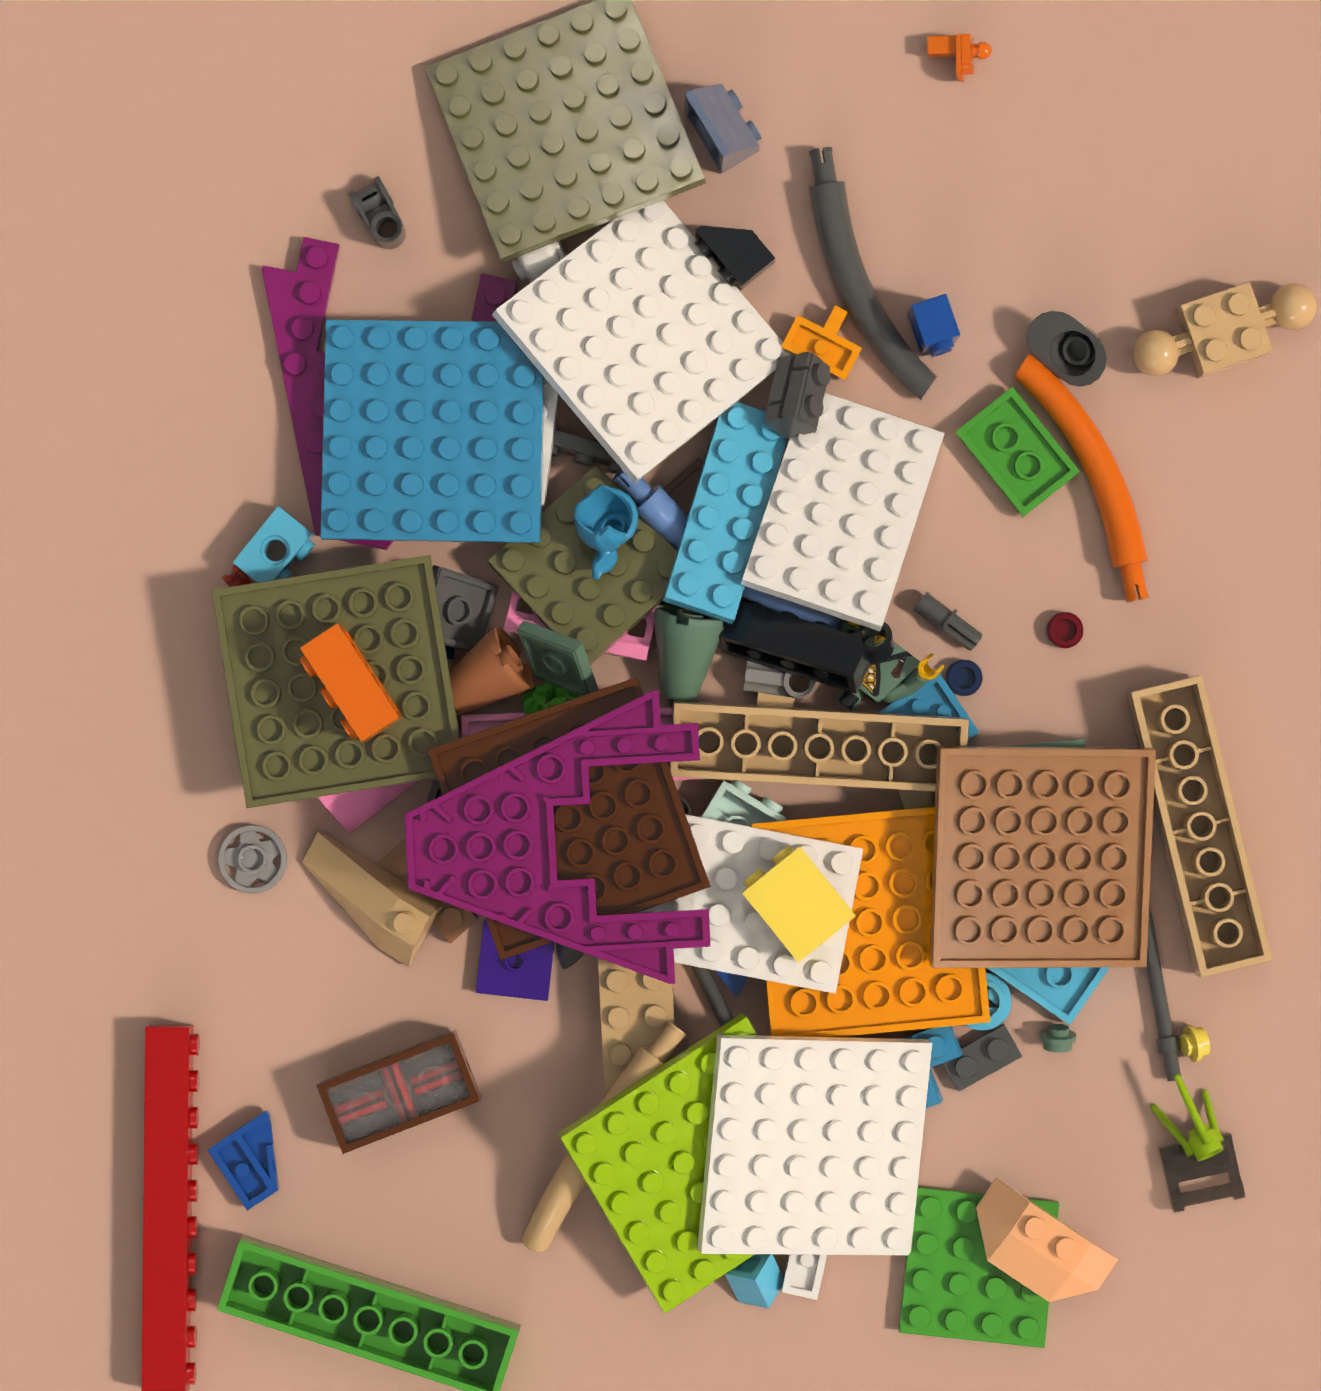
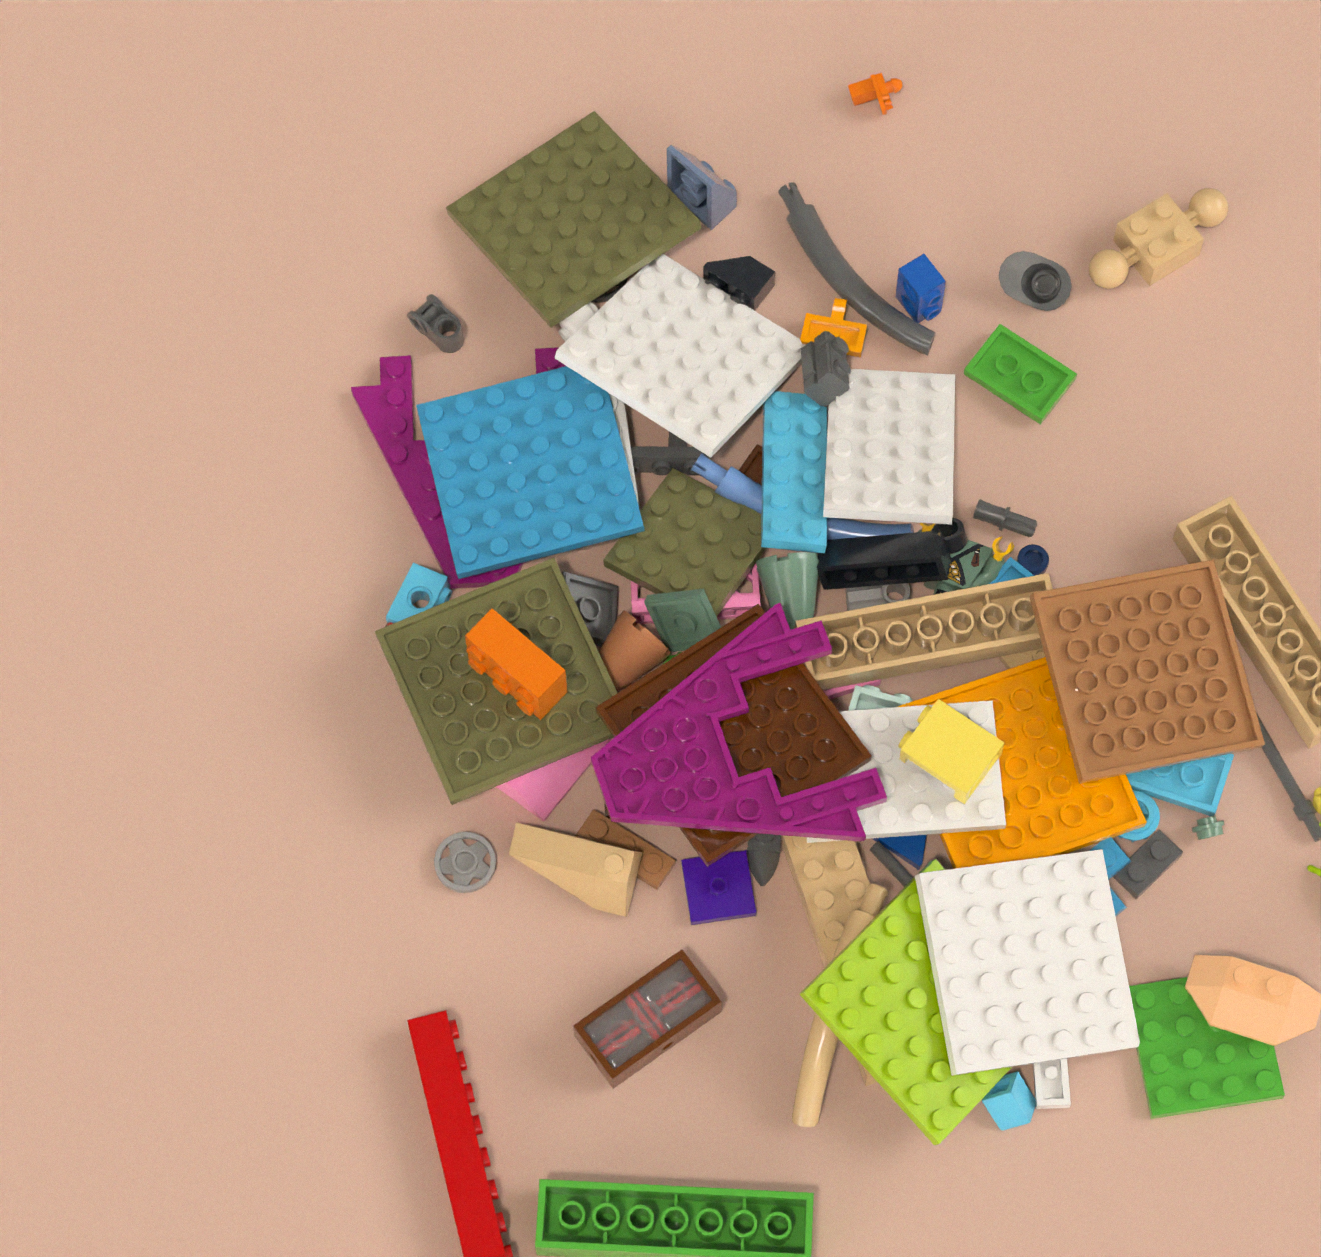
camera: 20 degrees left, 20 degrees down
(249, 1160) = (528, 1118): blue wing -> none
(604, 523) = (695, 497): dark azure hair -> none
(1064, 630) = (1104, 502): dark red tile -> none
(1101, 469) = (1094, 369): orange animal -> none

